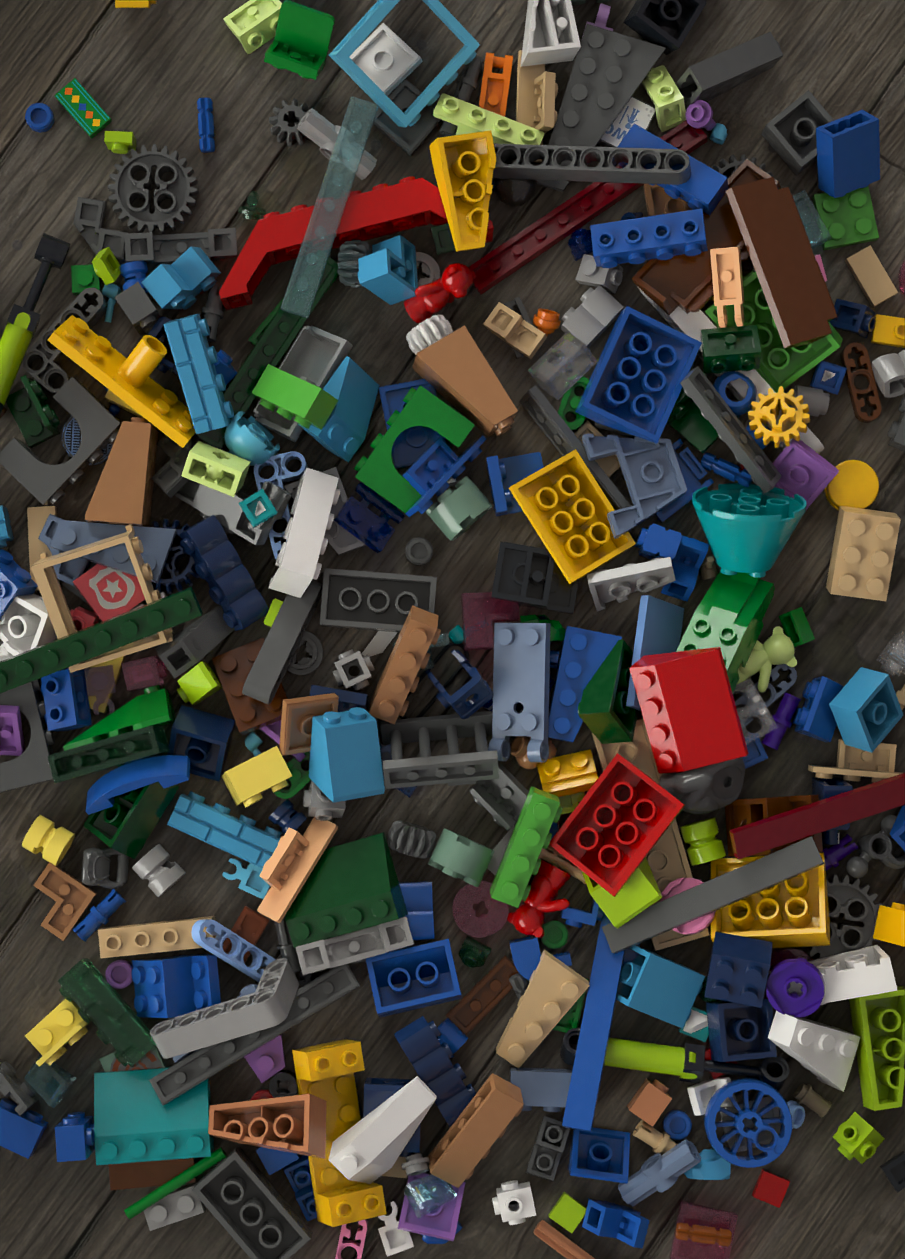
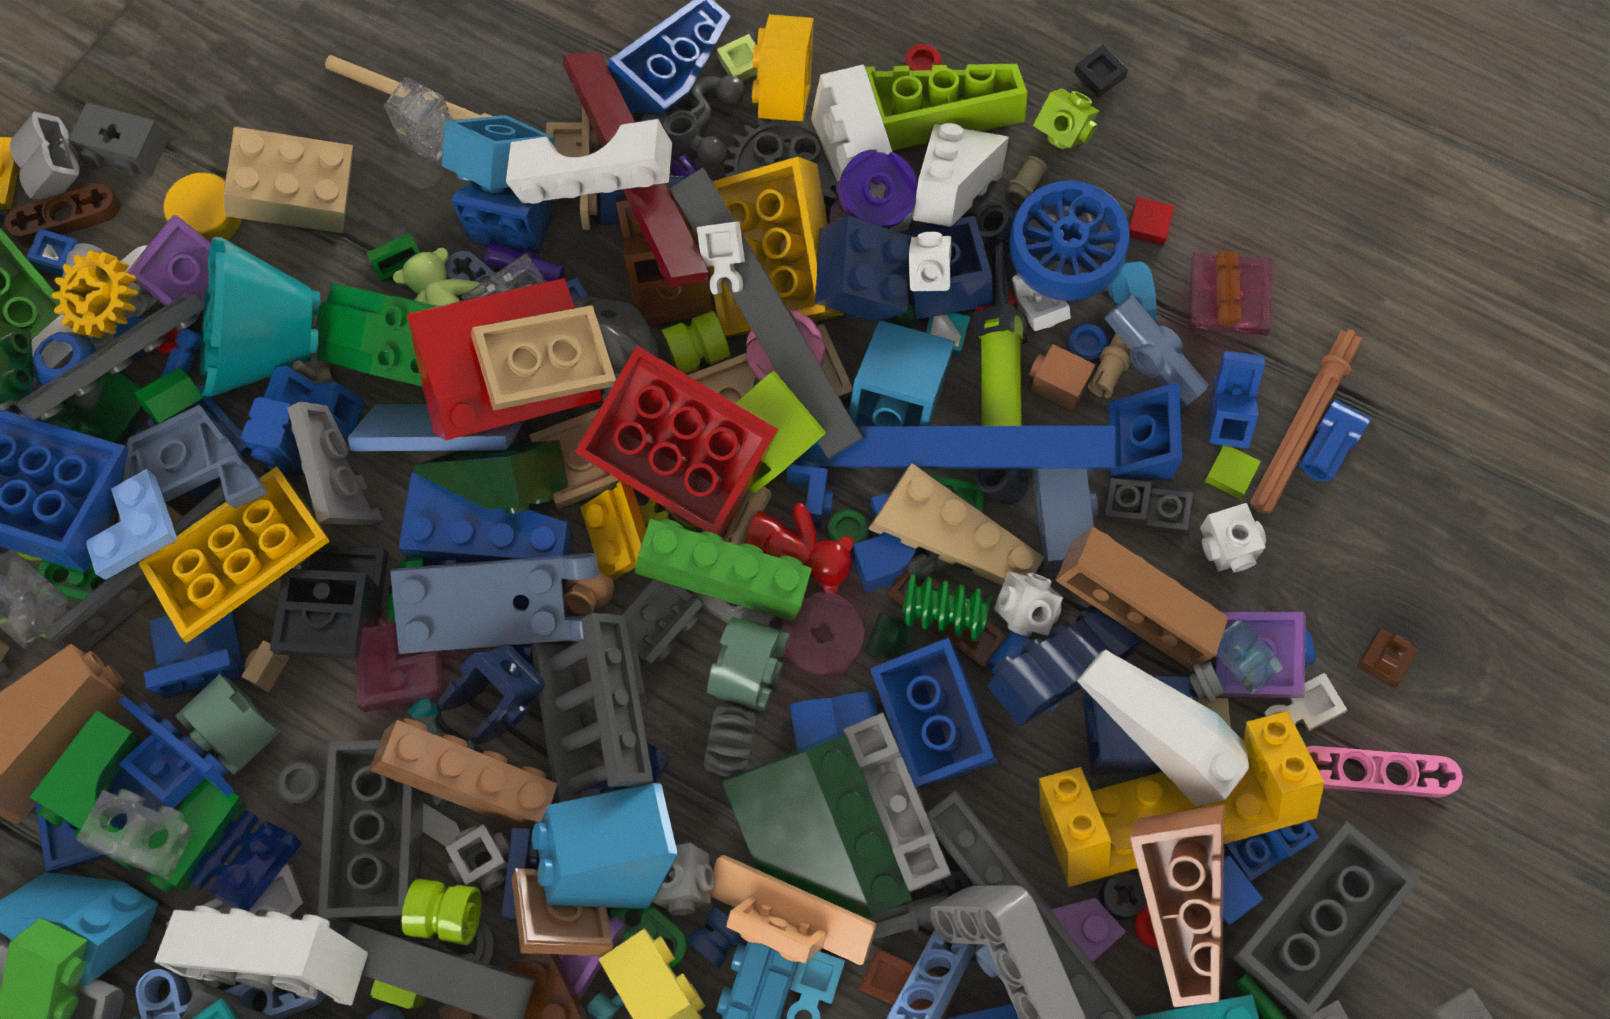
camera: 90 degrees left, 15 degrees down
(320, 644) = (447, 912): none -> lime wheel
(381, 452) = (132, 841): none -> clear brick
(481, 1052) = (1028, 604): none -> white brick
(485, 995) = (945, 608): none -> green piece
(499, 529) = (263, 667): none -> tan plate
(599, 454) = (142, 528): none -> light blue plate
(681, 739) = (542, 357): none -> tan plate
(699, 467) = (168, 396): none -> green piece
(737, 1018) = (930, 262): none -> white bracket
(755, 870) = (721, 248): none -> white plate
(831, 814) = (633, 158): none -> white arch

